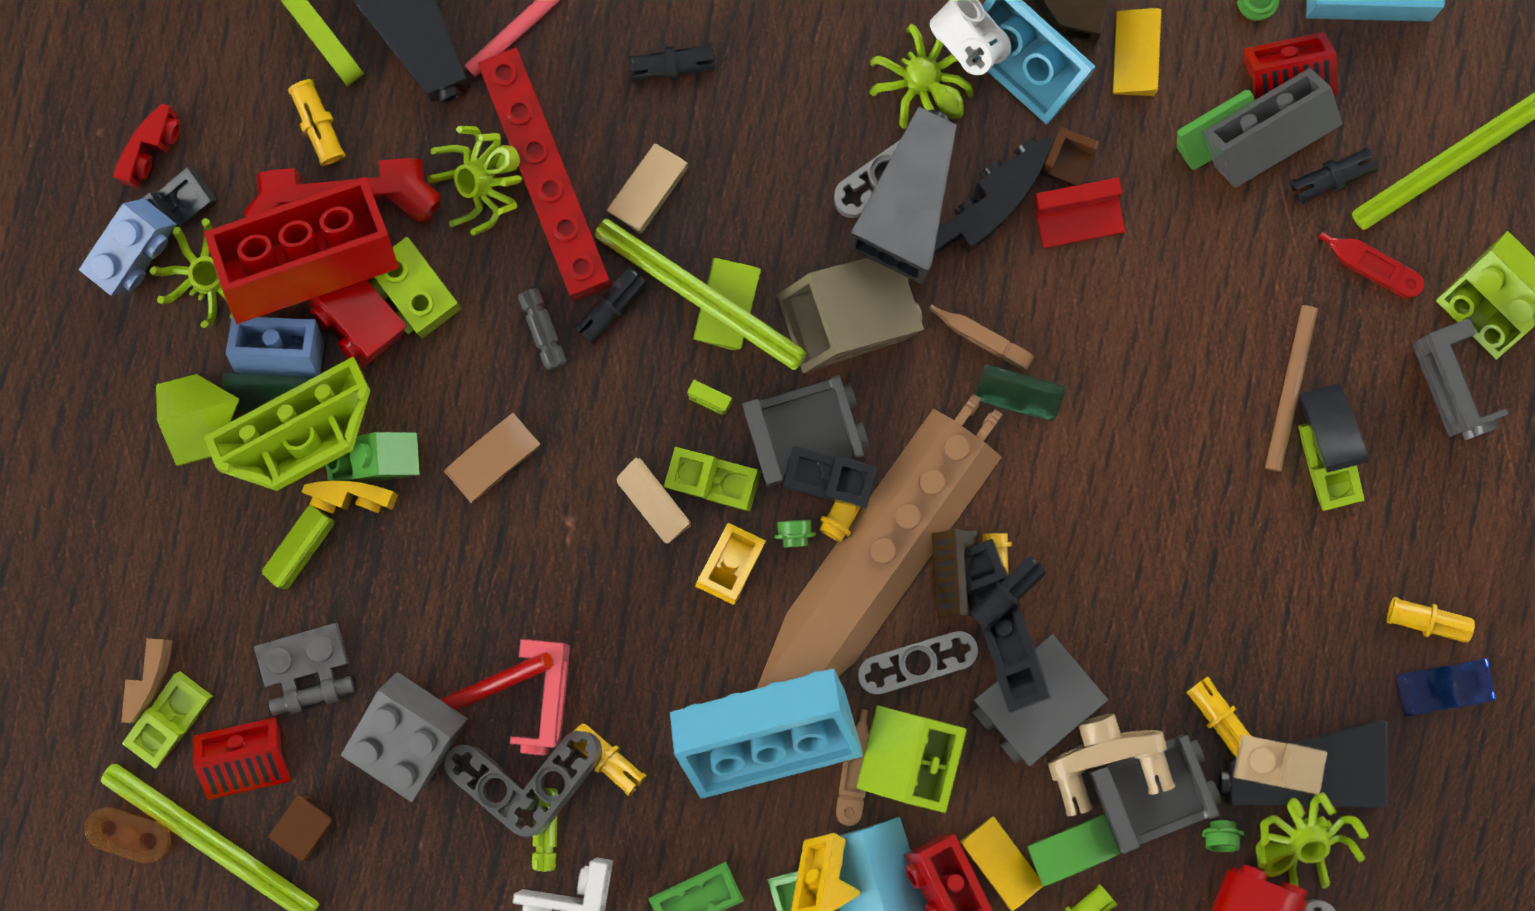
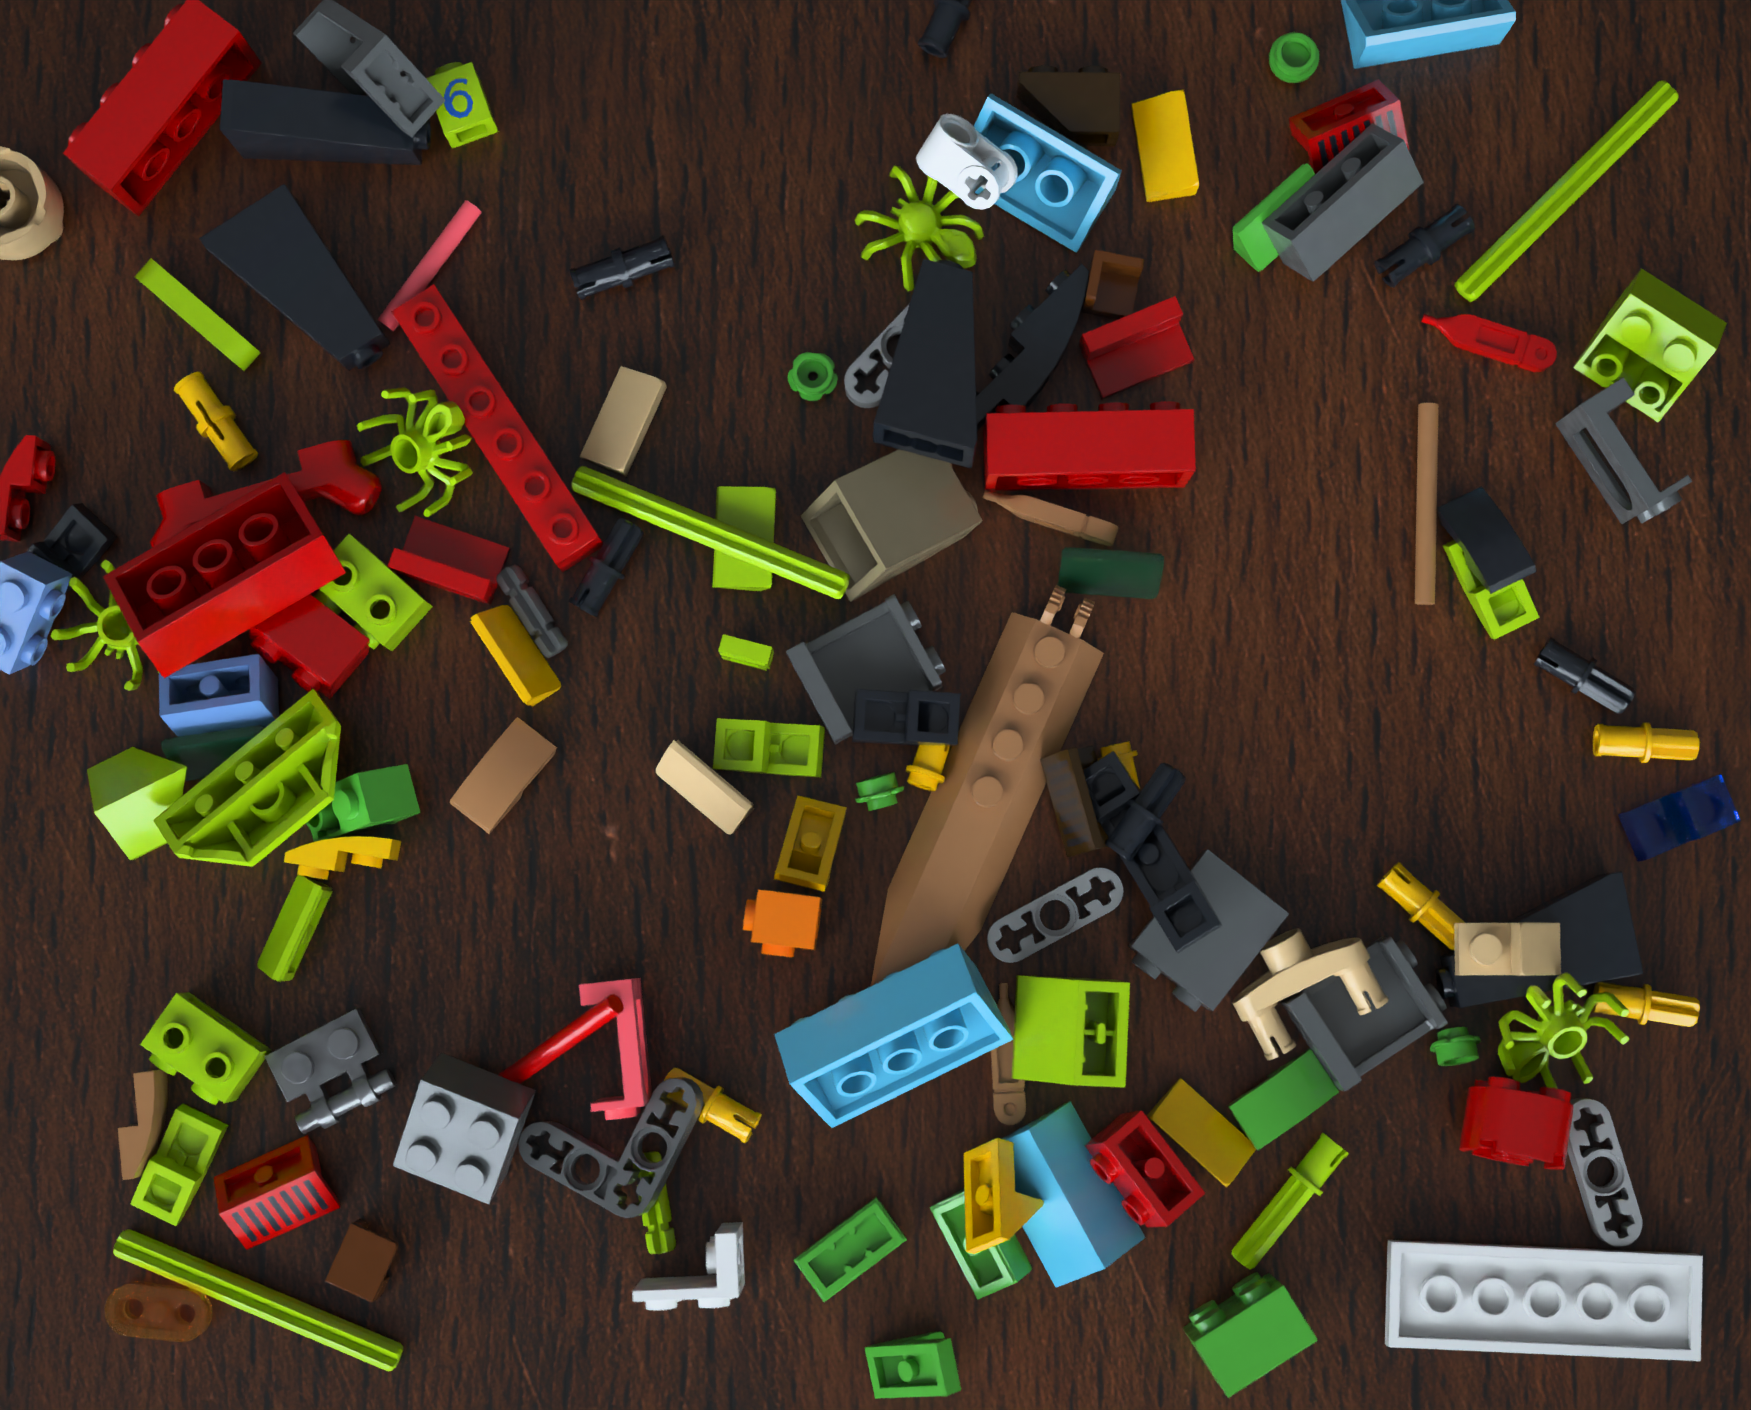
camera: 15 degrees left, 0 degrees up
(206, 630) = (204, 1049): none -> lime brick
(484, 274) = (450, 560): none -> red panel
(522, 361) = (516, 654): none -> yellow slope
(695, 622) = (783, 921): none -> orange brick
(807, 171) = (808, 363): none -> bright green plate
(1022, 288) = (1088, 447): none -> red brick
(1389, 835) = (1649, 1004): none -> yellow axle
(1391, 556) = (1584, 676): none -> black axle

